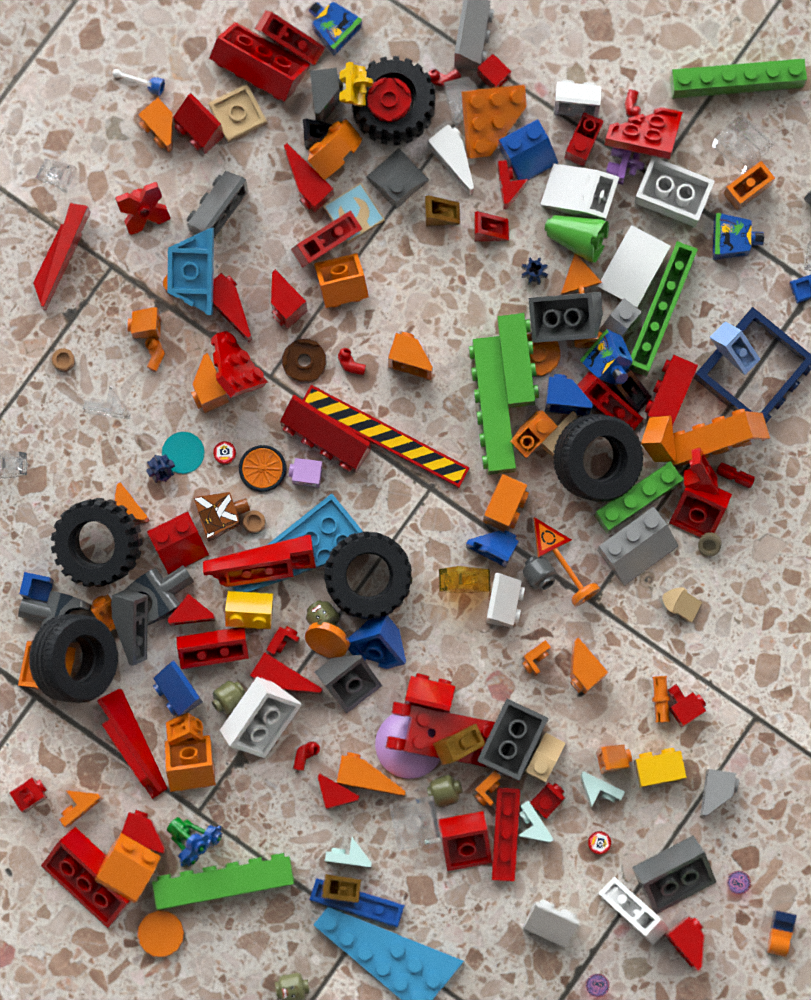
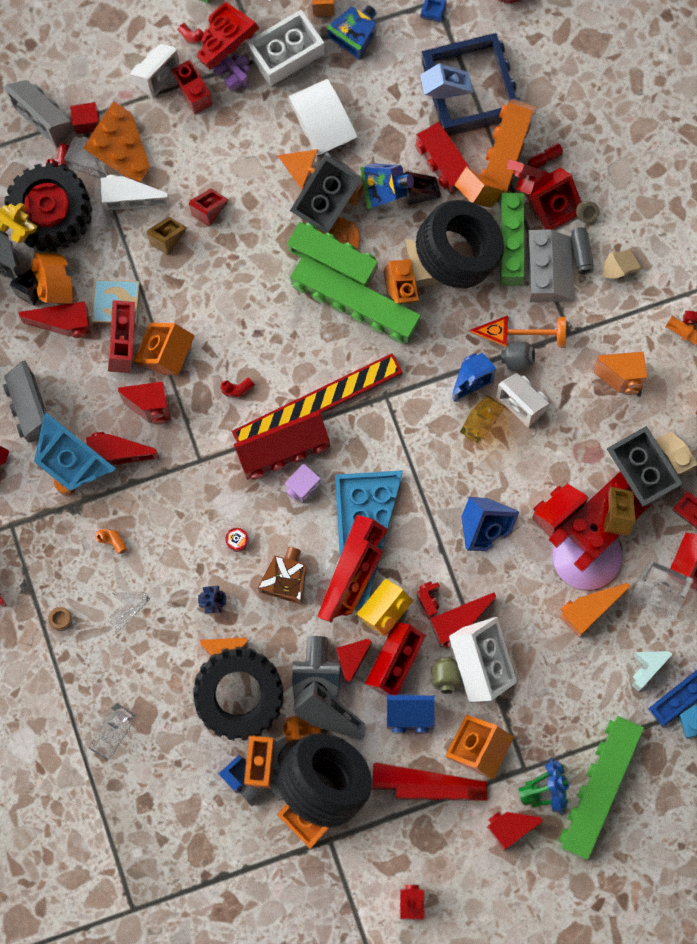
camera: 50 degrees left, 5 degrees down
(53, 598) = (260, 762): none -> orange brick
(75, 866) = (520, 898): red slope -> none
(84, 802) = (451, 860): orange slope -> none
(127, 868) = (536, 859): orange slope -> none
(145, 323) = (81, 528): orange slope -> none
(160, 933) = (608, 872): orange tile -> none
(178, 542) = (285, 628): red slope -> none
(184, 728) = (446, 731): orange bracket -> none
(185, 451) = (211, 570): teal sticker -> none
(208, 392) = (174, 510): orange slope -> none
(235, 369) = (180, 480): red plate -> none
(254, 522) = (312, 555): medium nougat tile -> none
(262, 468) = (271, 518): orange wheel -> none
(300, 373) = (210, 436): reddish brown tile -> none
(303, 753) = (535, 645): red arm -> none
(322, 612) = (433, 552): olive head -> none
(327, 640) = (456, 560): orange tile -> none
(335, 794) = (587, 644): red slope -> none
(341, 888) = (672, 692): pearl gold slope -> none
(348, 680) = (500, 568): dark grey slope -> none
(397, 178) = (113, 250): dark grey slope -> none
(399, 575) = (451, 476): black tyre -> none
(409, 357) = (269, 334): orange slope -> none
(445, 790) = (646, 550): olive head -> none
(489, 784) = (665, 514): orange bracket -> none
(504, 504) = (444, 341): orange brick -> none
(509, 189) = (185, 170): red slope -> none
(528, 151) = (168, 135): blue slope -> none
(537, 266) = (274, 197): dark blue gear -> none
(538, 653) = (583, 402): orange bracket -> none
(565, 396) = (389, 237): blue slope -> none
(579, 191) = (233, 117): white slope -> none
(579, 235) = (265, 141): bright green cone -> none
(608, 401) = (411, 210): red slope -> none
(622, 318) = (357, 152): light grey slope -> none
(662, 308) = (371, 116): bright green brick -> none
(671, 563) = (582, 250): none -> dark grey piece

